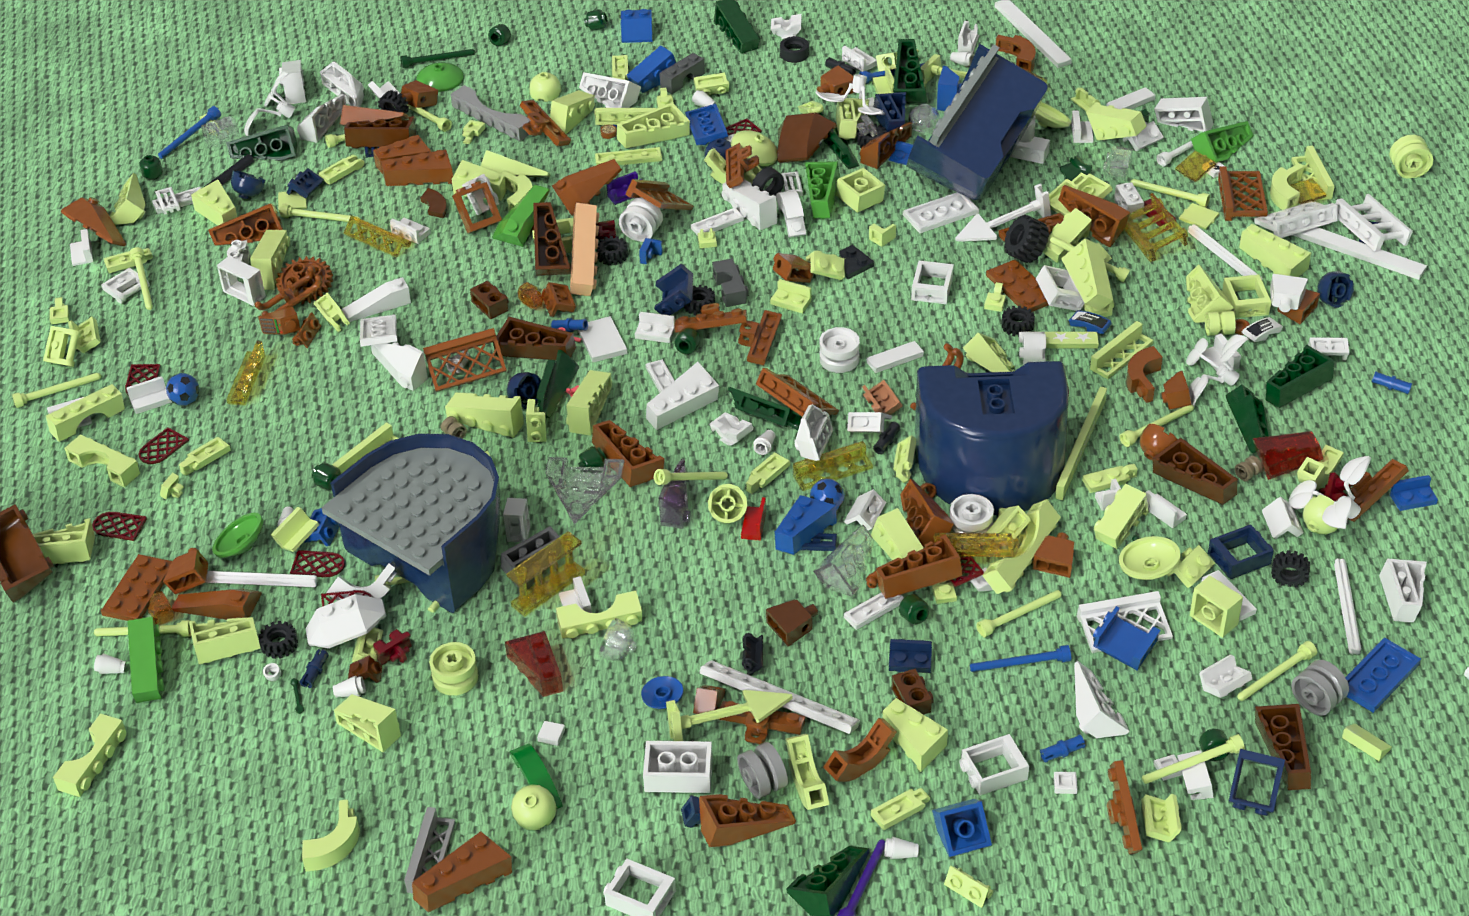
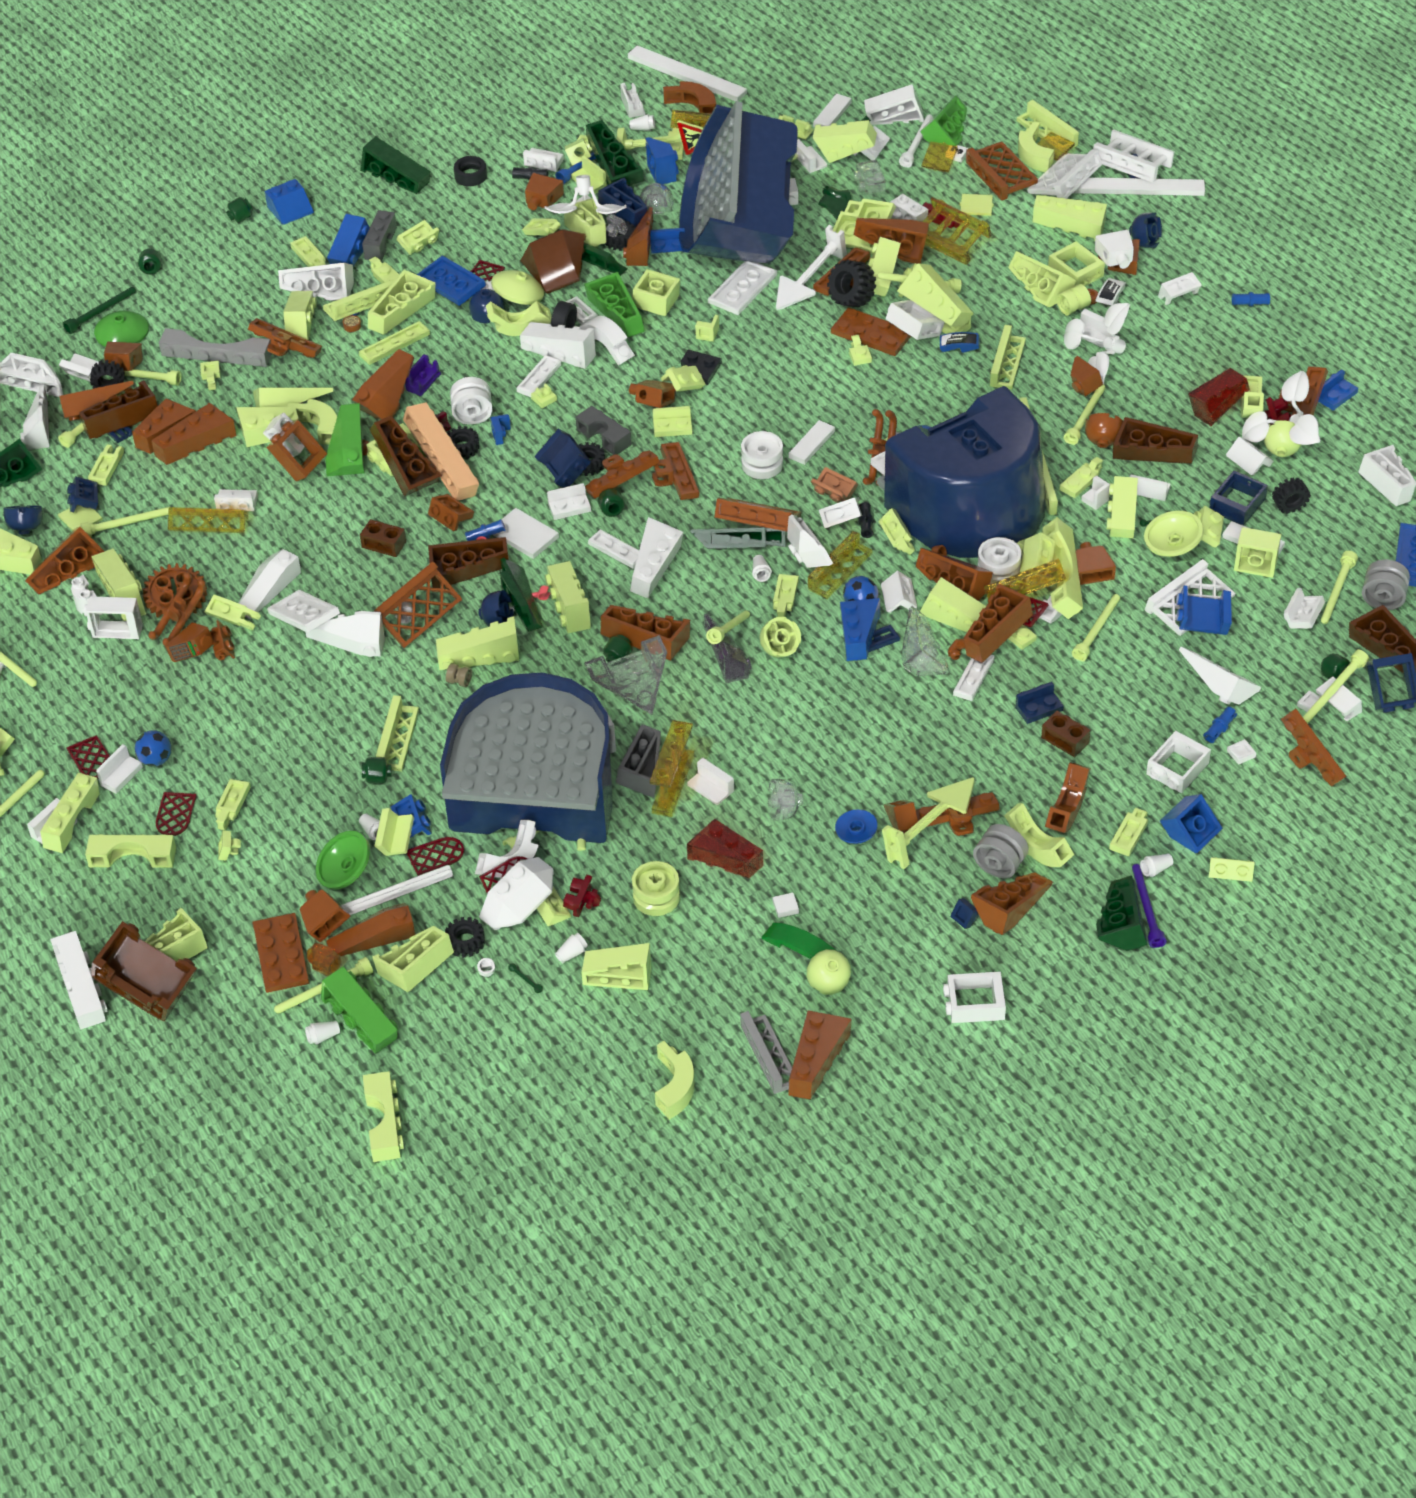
camera: 30 degrees left, 5 degrees up
(142, 519) = (211, 902): dark red window -> none
(246, 375) = (201, 709): clear yellow fence -> none
(314, 668) = (521, 947): dark blue pin -> none
(366, 668) = (570, 925): reddish brown bracket -> none
(436, 203) = (236, 461): reddish brown tile -> none
(530, 296) = (421, 519): clear orange rock -> none
(535, 423) = (537, 636): yellowish green bracket -> none
(545, 87) = (247, 300): yellowish green cylinder -> none
(575, 621) = (727, 799): yellowish green arch -> none
(657, 194) = (460, 368): dark orange fence -> none
(678, 766) = (925, 881): white brick -> none
(701, 99) = (423, 256): white cone -> none
(730, 428) = (721, 570): white cylinder -> none
(736, 163) = (525, 308): dark orange plate -> none
(753, 653) = (906, 759): black hinge -> none
(754, 521) = (812, 643): red panel -> none
(786, 28) = (446, 150): white cylinder -> none
(791, 620) = (914, 716): reddish brown torso -> none
(797, 704) = (982, 784): white tile -> none
(914, 609) = (1011, 661): dark green head -> none
(916, 733) = (1105, 763): yellowish green wedge -> none
(938, 294) = (787, 371): white window -> none
(988, 354) = (903, 409): yellowish green wedge -> none
(1012, 315) = (896, 358): black tyre -> none
(1033, 346) = (931, 384): white cylinder -> none
(1061, 654) = (1159, 647): blue piece -> none
(1071, 340) = (945, 368): yellowish green tile -> none
(1140, 365) = (1037, 377): dark orange arch -> none
(1161, 817) = (1340, 744): yellowish green bracket -> none
(1201, 199) = (968, 187): yellowish green piece -> none
(1220, 251) = (1024, 232): white axle -> none
(1248, 468) = (1191, 421): dark tan wheel -> none
(1249, 415) = (1158, 376): dark green wedge -> none
(1299, 377) = (1177, 320): dark green wedge -> none
(1347, 606) = (1352, 509): white axle -> none
(1411, 156) = (1124, 80): yellowish green wheel -> none

